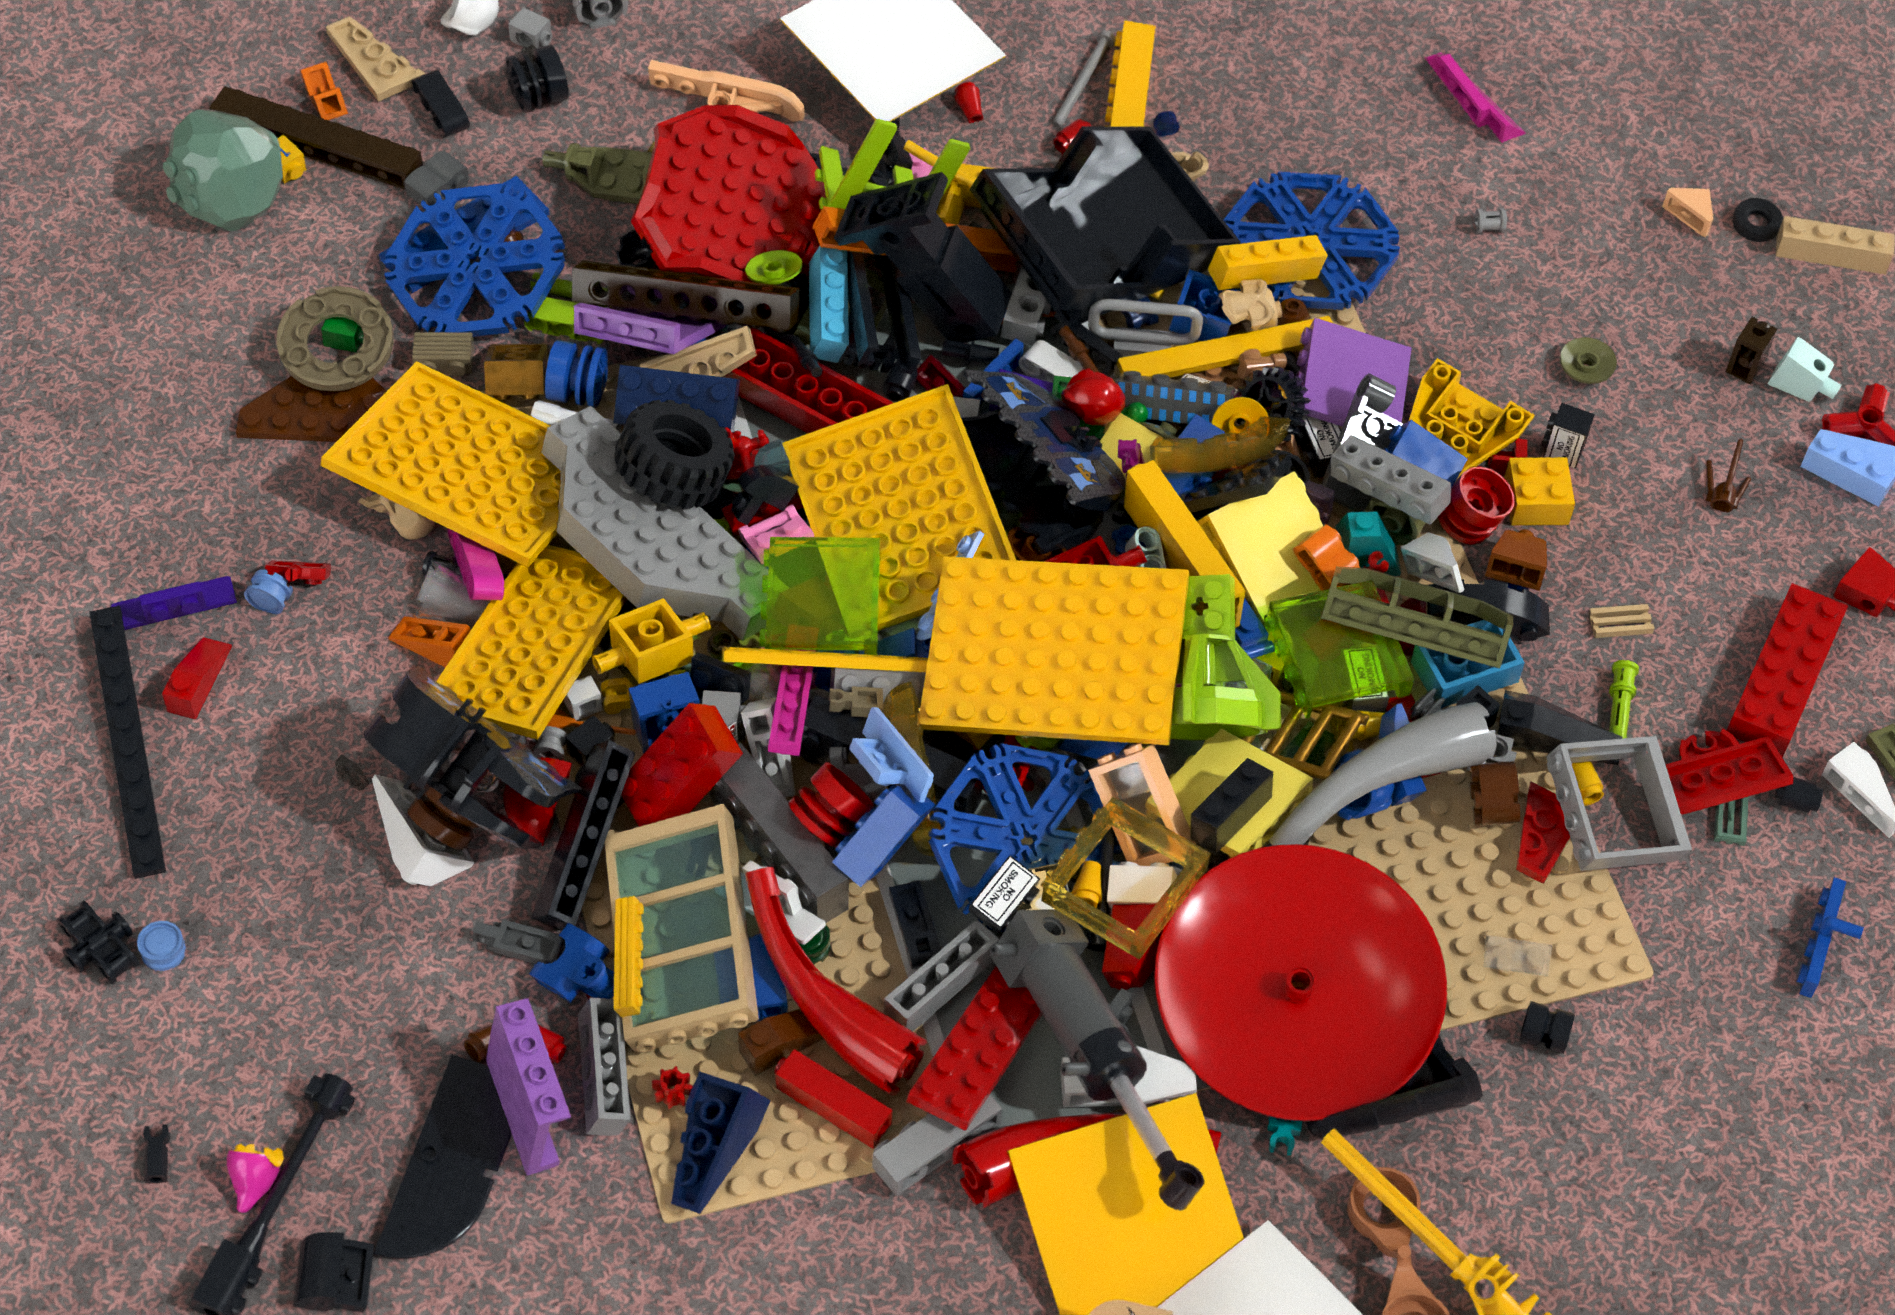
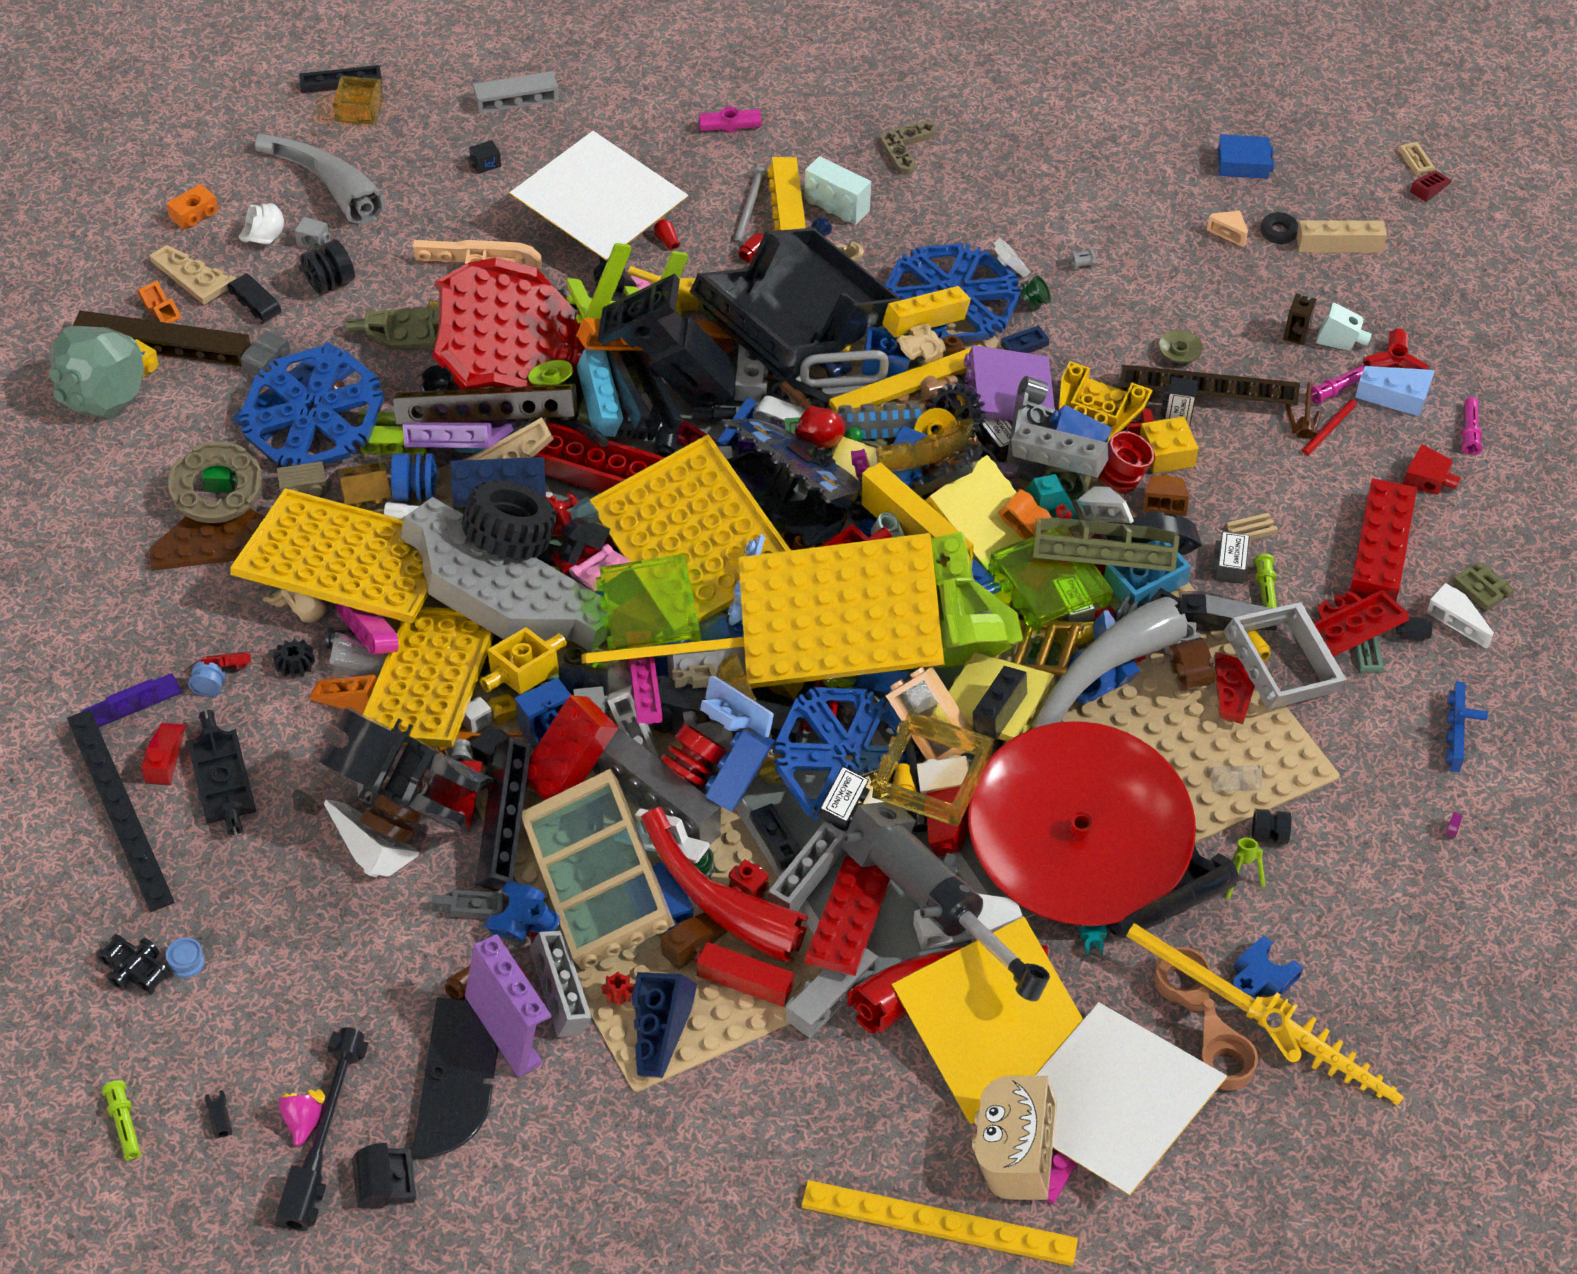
camera: 10 degrees left, 5 degrees down
(40, 1124) = (120, 1110): none -> lime pin
(258, 718) = (221, 774): none -> black plate
(380, 582) = (293, 658): none -> black gear
(628, 956) = (561, 896): yellow piece -> none
(866, 977) = (749, 879): none -> red brick
(1196, 79) = (837, 190): none -> light aqua brick
(1295, 22) = (920, 131): none -> dark tan beam
(1389, 320) = (1026, 340): none -> dark blue plate
(1394, 203) = (1009, 258): none -> white plate
(1418, 257) = (1035, 292): none -> dark green wheel
(1473, 99) = (1045, 174): dark pink wedge -> none
(1485, 1224) = (1260, 975): none -> blue piece
(1502, 1061) = (1246, 853): none -> lime plant
(1585, 656) = (1232, 557): none -> brick
(1617, 419) = (1214, 384): none -> dark brown brick
(1736, 115) = (1245, 156): none -> blue brick
(1755, 502) = (1329, 427): none -> red bar
(1772, 448) = (1331, 387): none -> dark pink pin
(1785, 1069) = (1454, 824): none -> magenta tile

